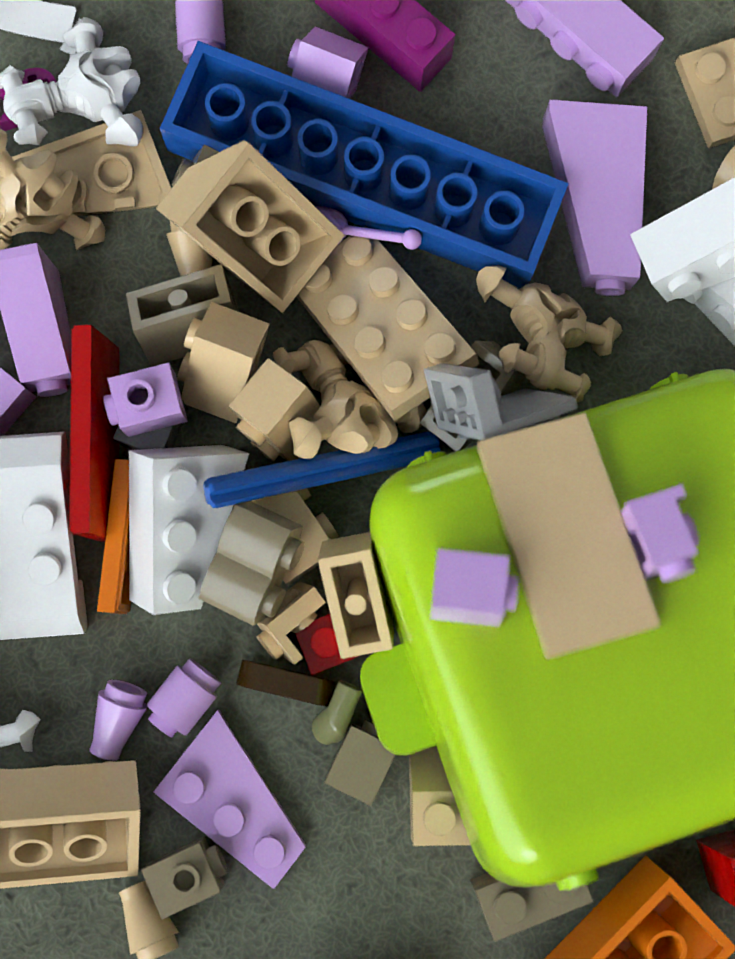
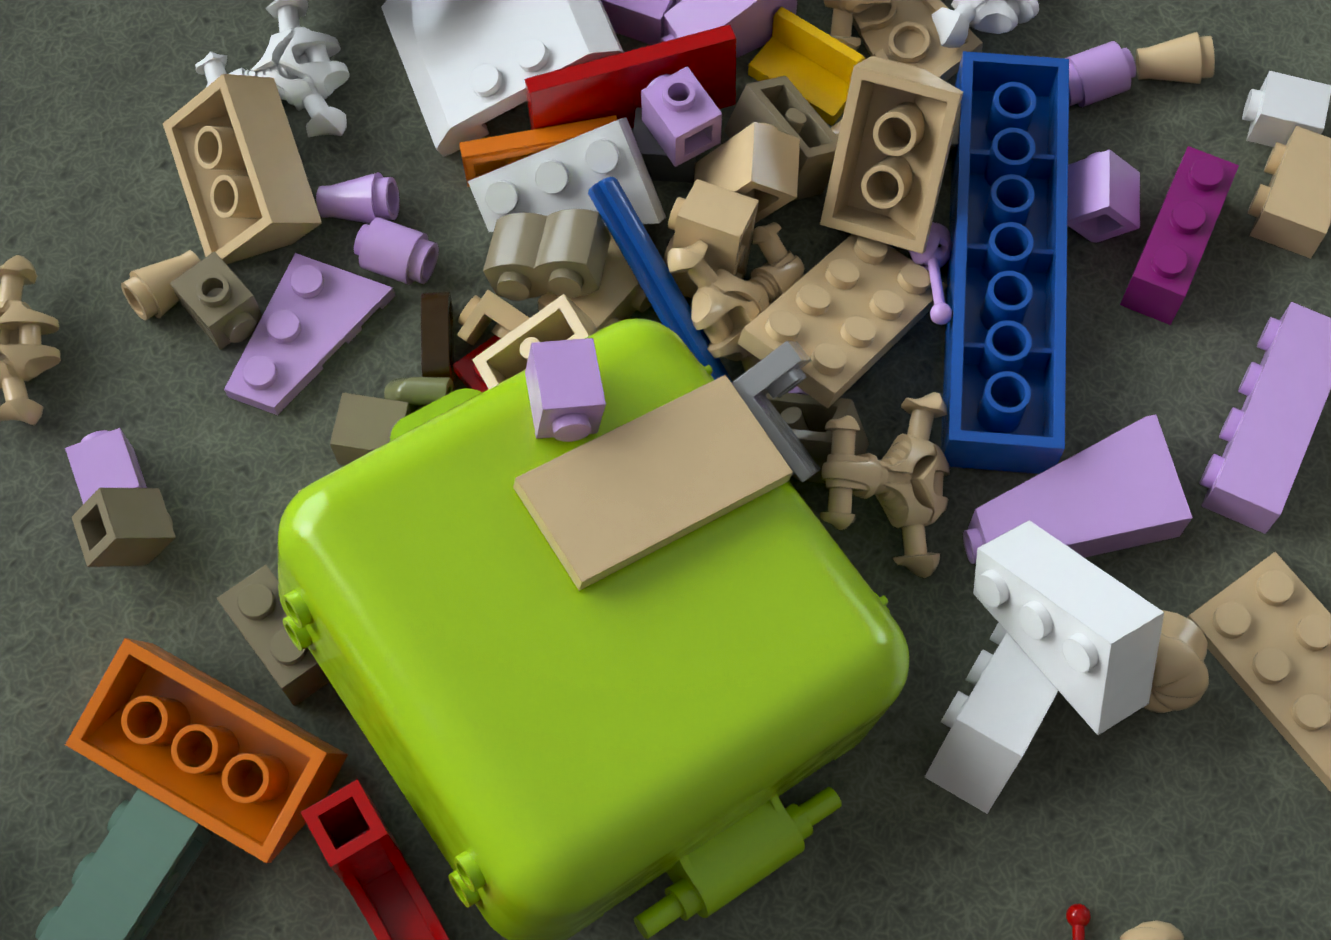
camera: 80 degrees right, 15 degrees down
(110, 269) = (810, 60): none -> yellow panel
(662, 534) = (681, 562): lavender brick -> none

